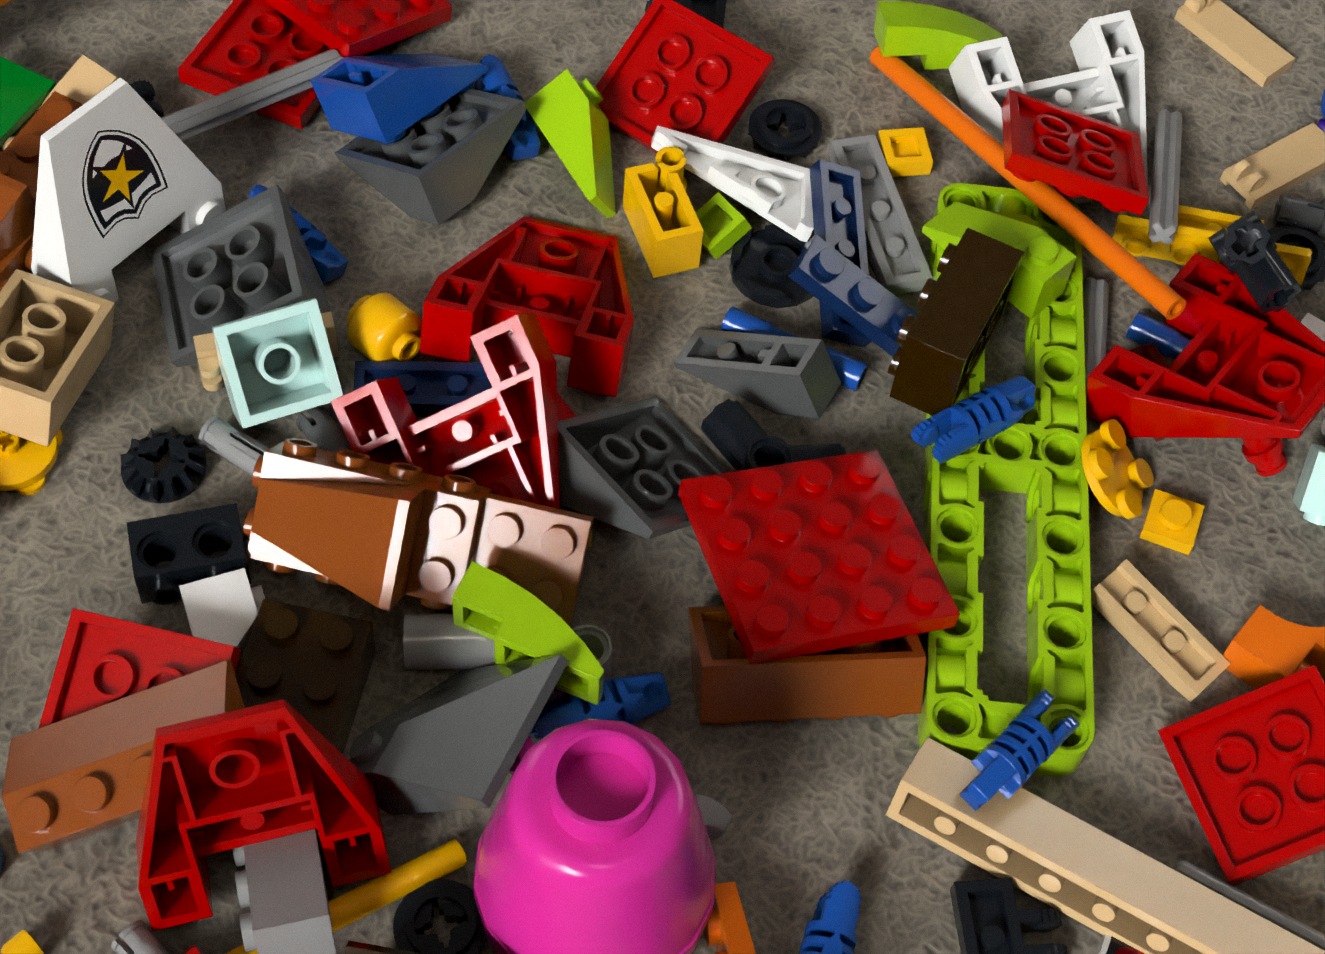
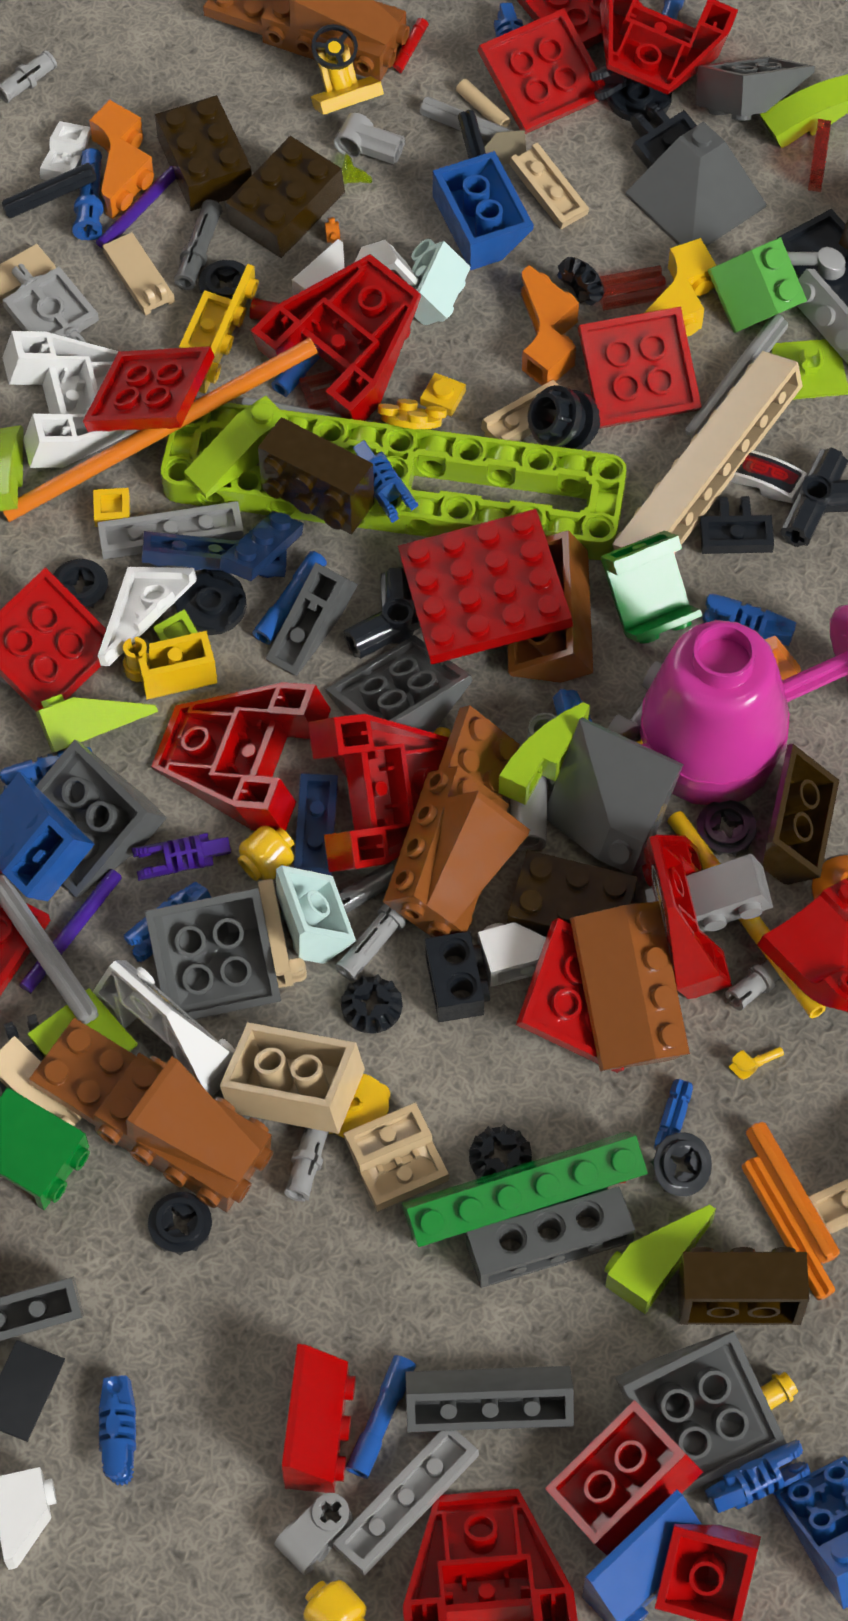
camera: 80 degrees left, 5 degrees up
(299, 155) = (74, 926): none -> dark purple bar
(388, 247) = (182, 854): none -> dark purple hinge
(852, 791) = (649, 587): none -> panel
(1017, 752) = (633, 491): blue hinge -> none
(1145, 662) = (563, 418): none -> black piece
(1165, 177) = (158, 339): light grey axle -> none
(1197, 74) = (49, 304): none -> light grey plate
(1251, 254) = (271, 293): black piece -> none

